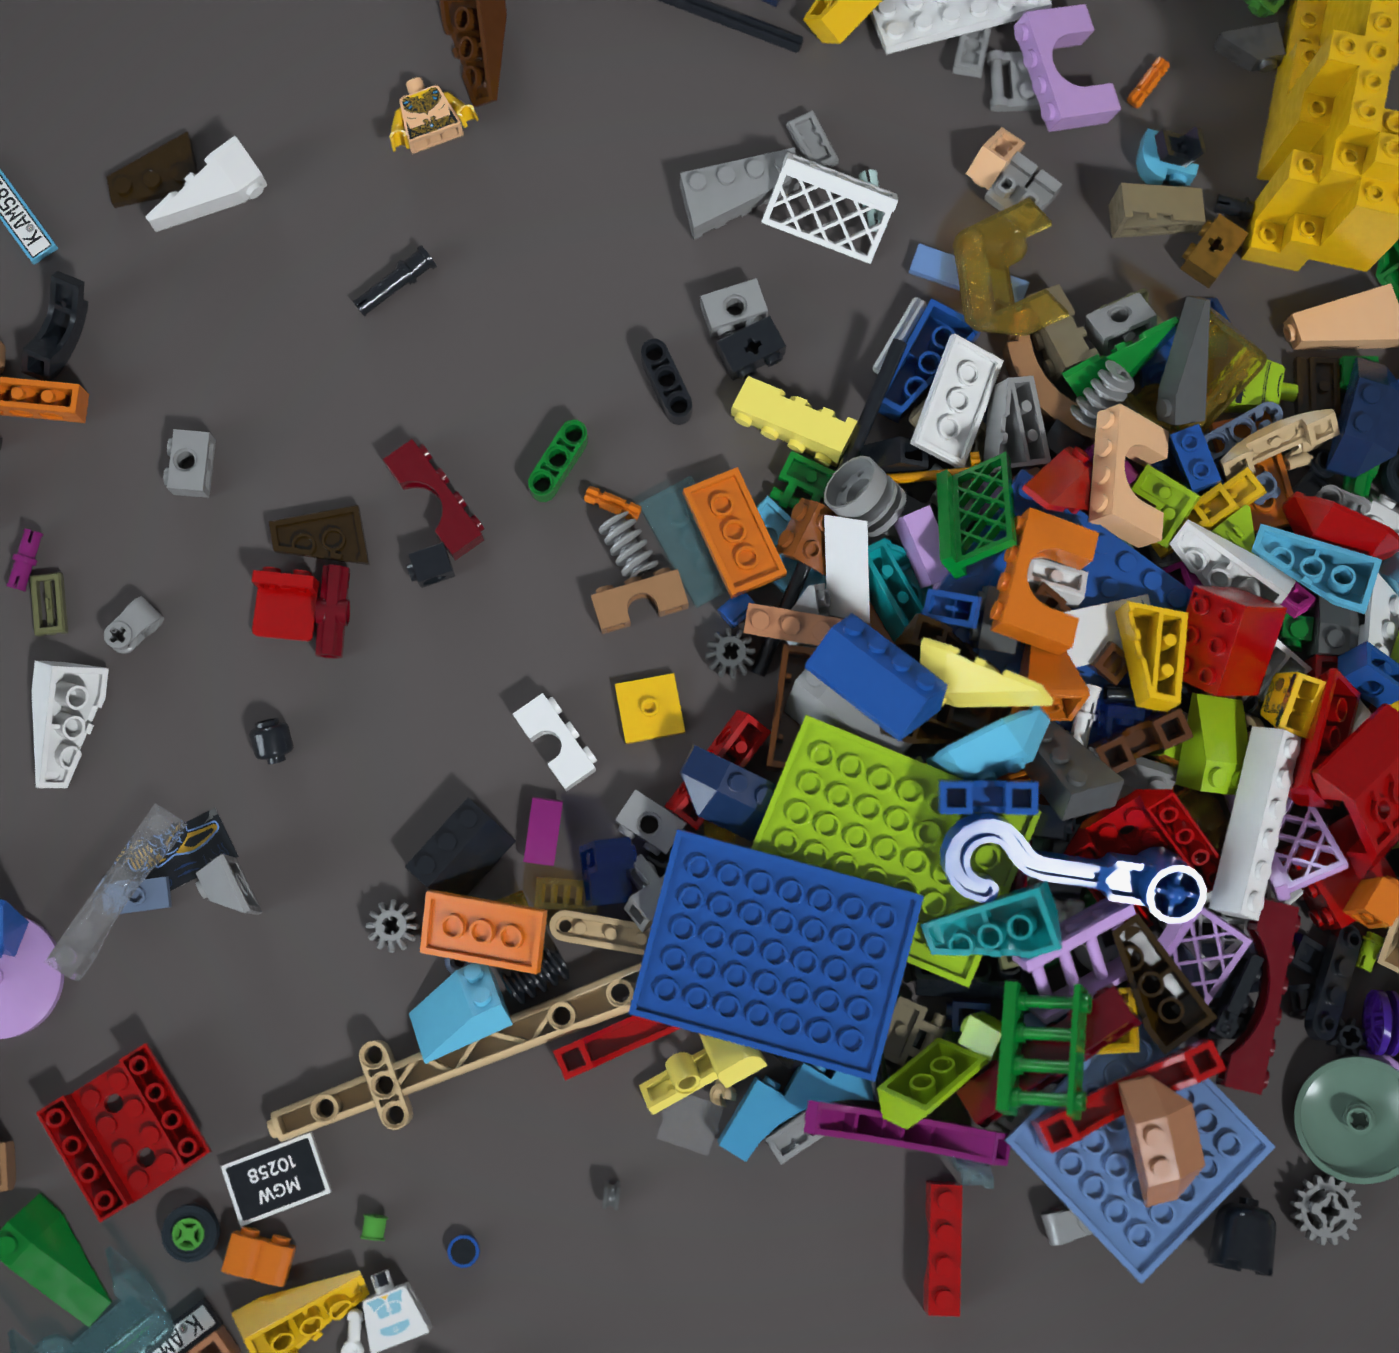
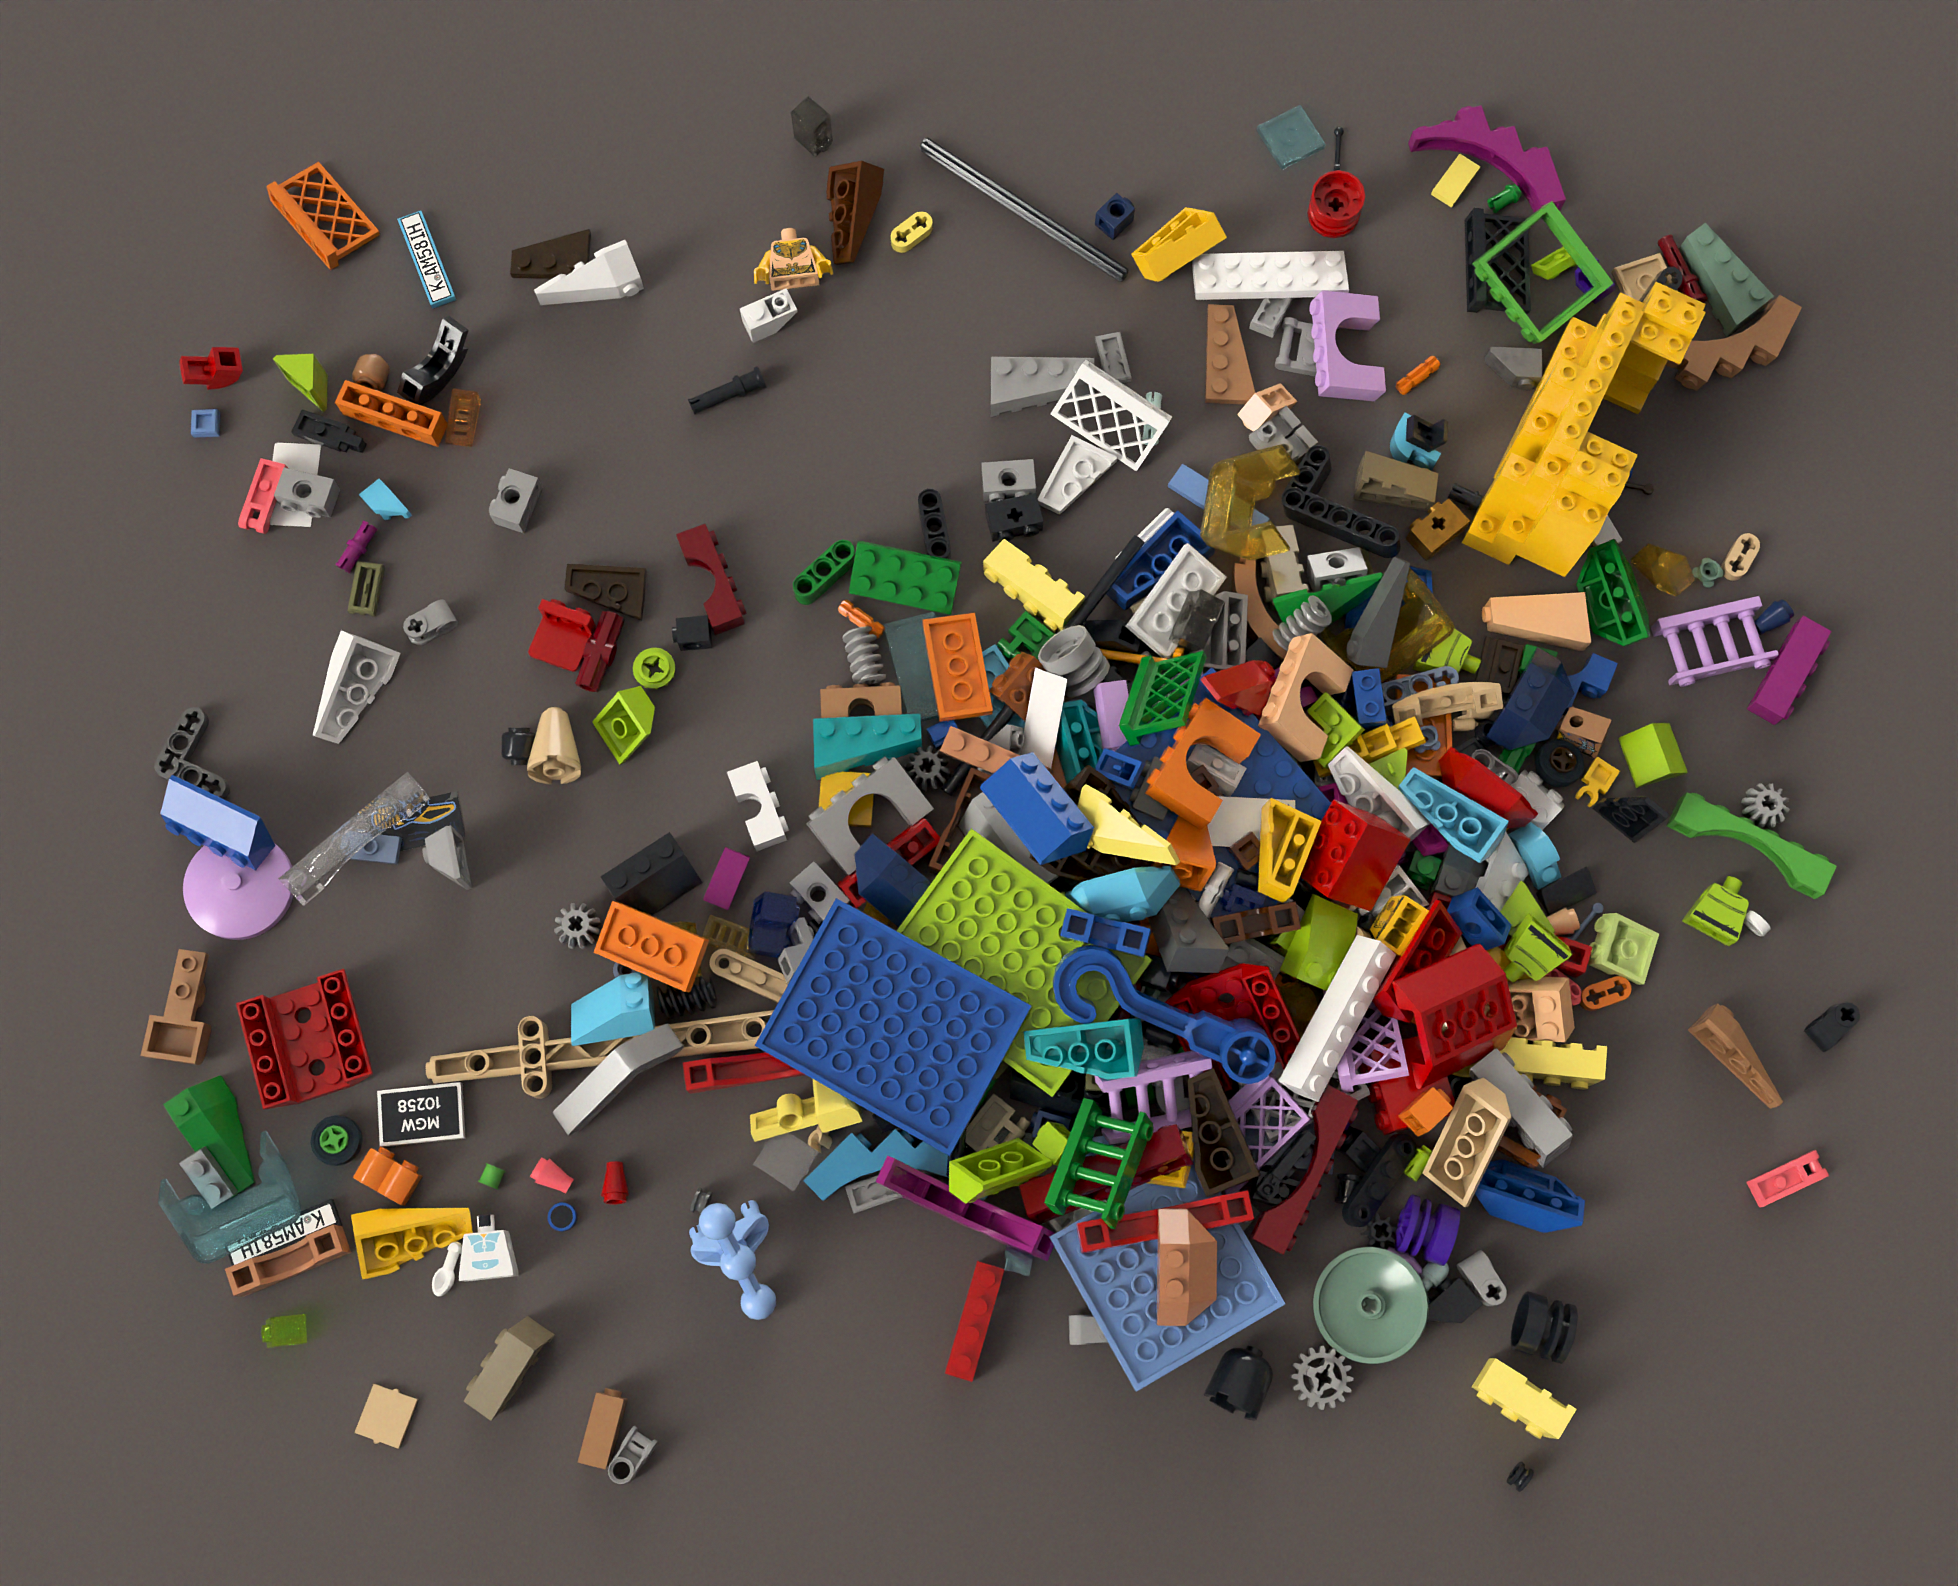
camera: 20 degrees right, 5 degrees down
(41, 500) = (383, 501): none -> medium azure slope
(59, 1312) = (208, 1177): none -> flat silver plate
(95, 358) = (473, 408): none -> clear orange slope
(312, 735) = (554, 749): none -> tan cone
(384, 685) = (625, 722): none -> lime slope
(389, 604) = (649, 658): none -> lime gear
(417, 183) = (768, 315): none -> white slope
(438, 1209) = (551, 1175): none -> coral cone
(485, 1086) = (614, 1075): none -> light grey beam
(512, 1200) = (615, 1184): none -> red cone
(546, 46) = (911, 232): none -> light yellow beam
(644, 740) = (887, 780): none -> light grey arch
(649, 445) = (904, 577): none -> green plate
(652, 640) = (863, 740): none -> teal wedge
(661, 1237) = (732, 1247): none -> light blue connector
(803, 283) = (1074, 473): none -> white wing
(936, 117) = (1226, 361): none -> medium nougat wing
(986, 418) = (1196, 620): none -> clear smoke brick
(1098, 258) = (1332, 512): none -> black beam

